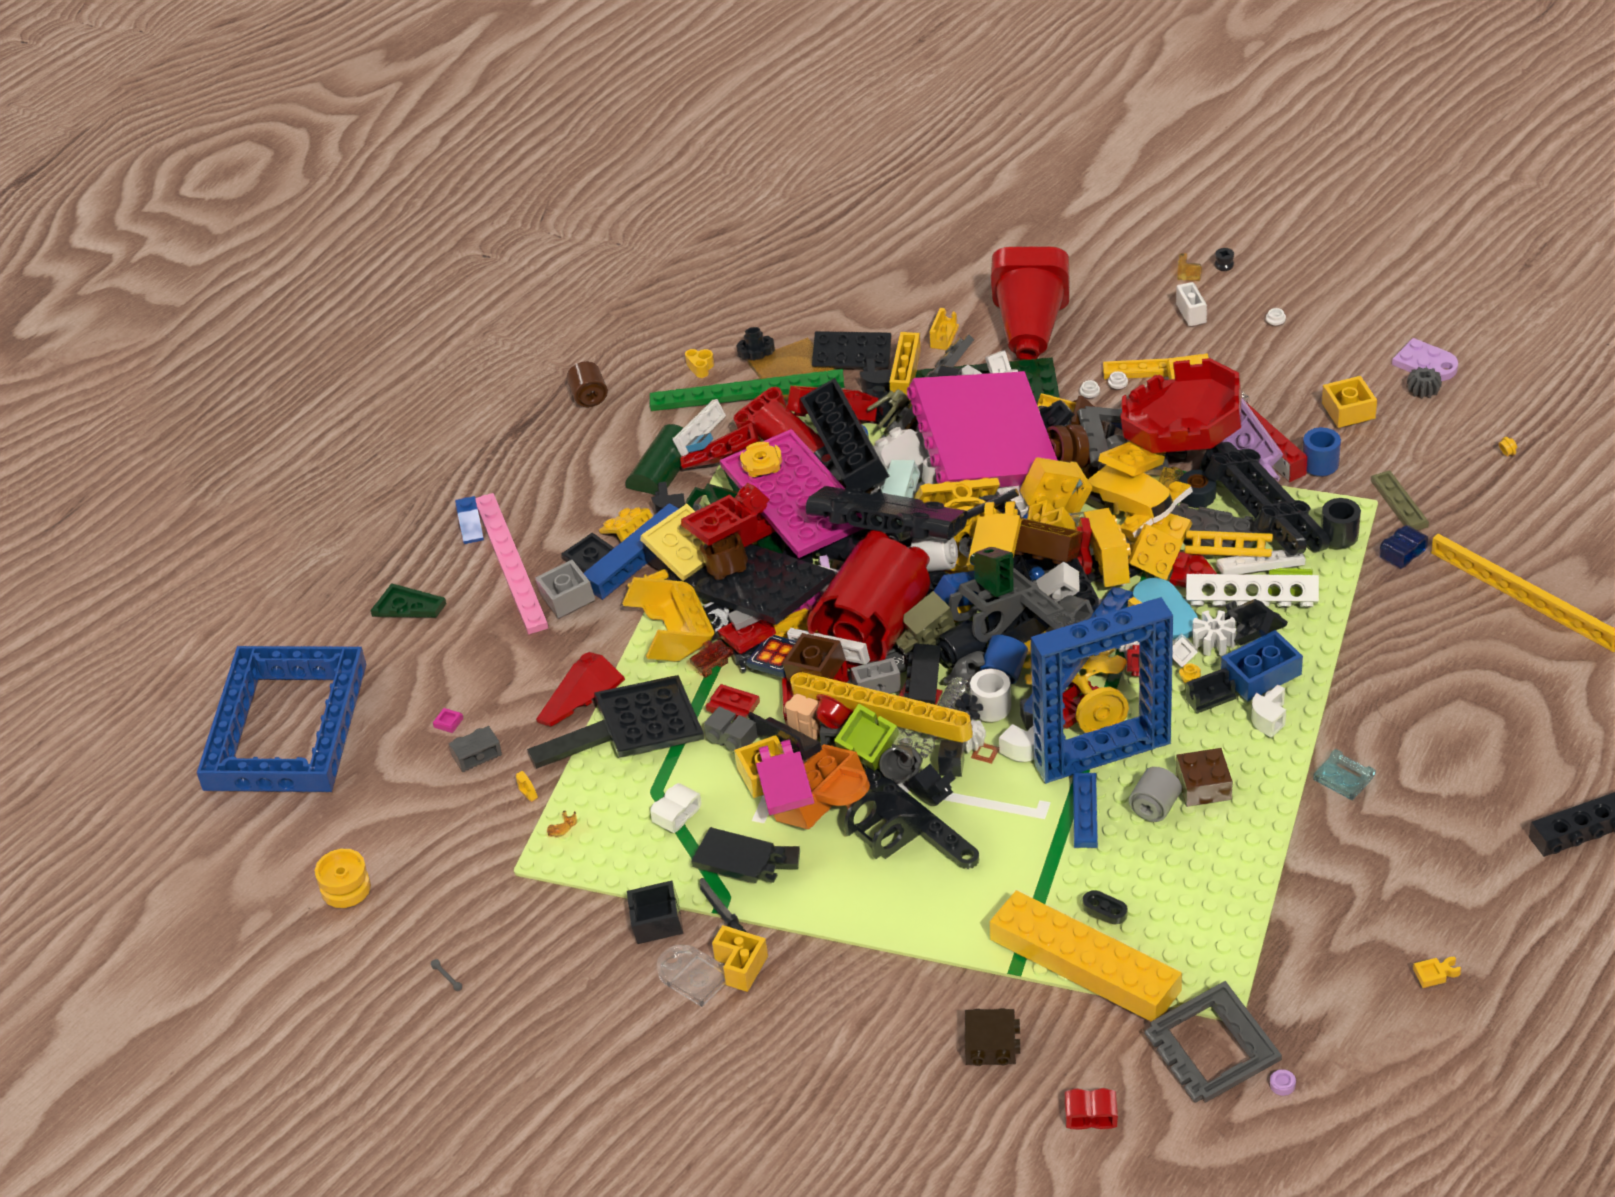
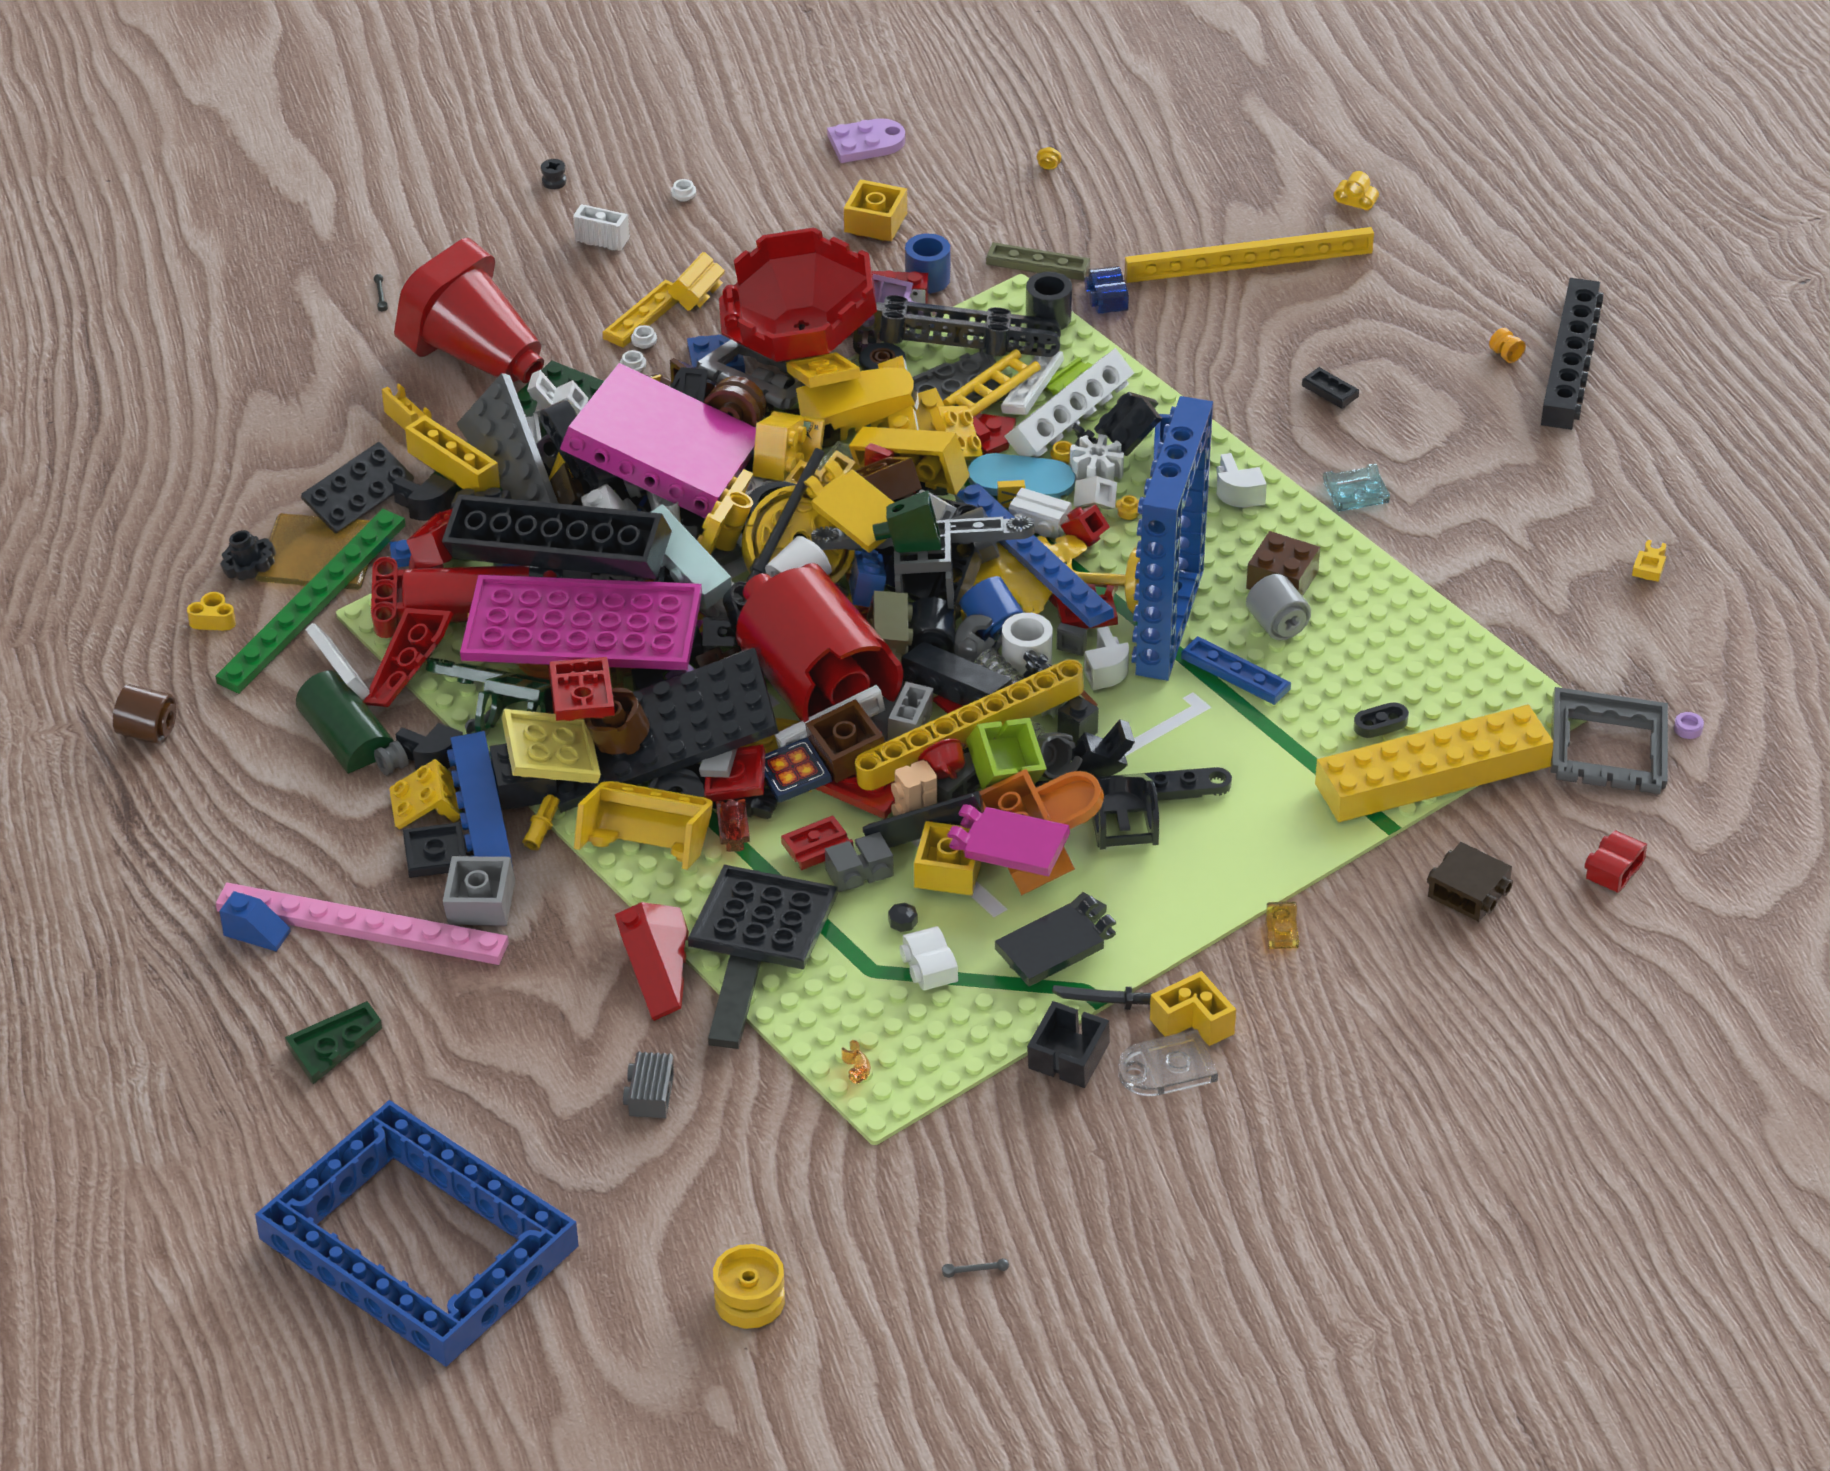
camera: 60 degrees left, 0 degrees up
(448, 720) = (570, 1093): dark pink tile -> none
(525, 786) = (757, 1070): yellow tile -> none
(644, 494) = (391, 758): none -> dark grey wheel
(699, 442) = (371, 669): dark azure tile -> none
(705, 777) = (902, 917): none -> black tile
(752, 498) = (573, 645): red brick -> none
(769, 464) = (513, 627): yellow plate -> none
(866, 963) = (1282, 925): none -> clear yellow bracket
(897, 402) = (512, 485): olive plant -> none
(917, 517) = (698, 570): black panel -> none
(1188, 271) = (534, 205): clear yellow panel -> none
(1211, 608) = (1061, 451): none -> yellow plate
(1424, 382) = (900, 155): dark grey gear -> none
(1432, 706) = (1330, 387): none -> black plate
(1587, 771) = (1505, 343): none -> light orange wheel

